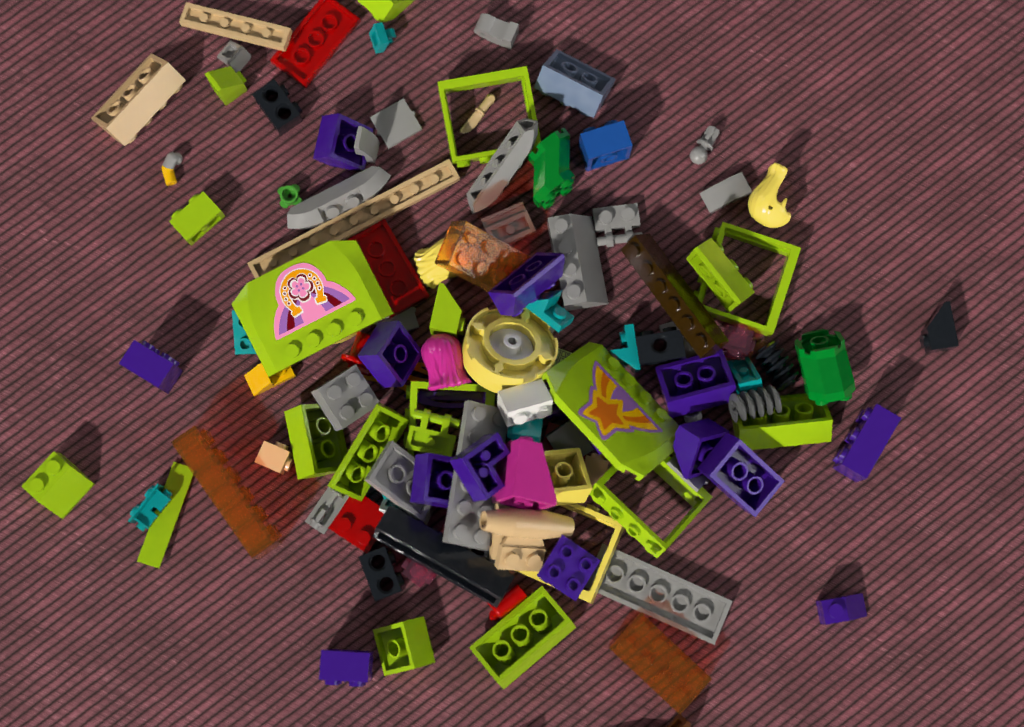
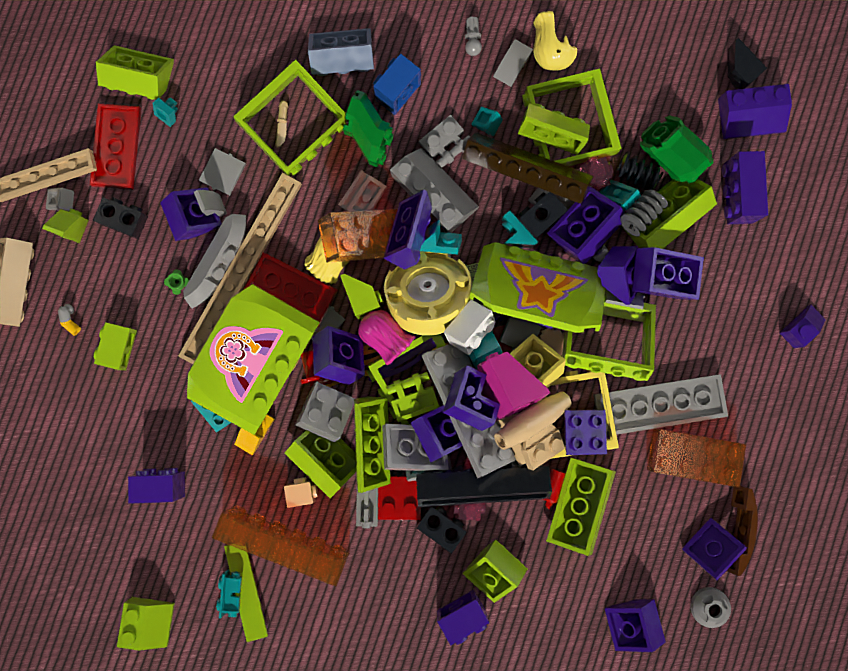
camera: 30 degrees left, 5 degrees up
(496, 30) = (253, 48): light grey leg -> none
(503, 164) = (328, 149): light grey brick -> none
(668, 230) = (487, 121): none -> teal slope
(924, 379) = (755, 111): none -> dark purple slope

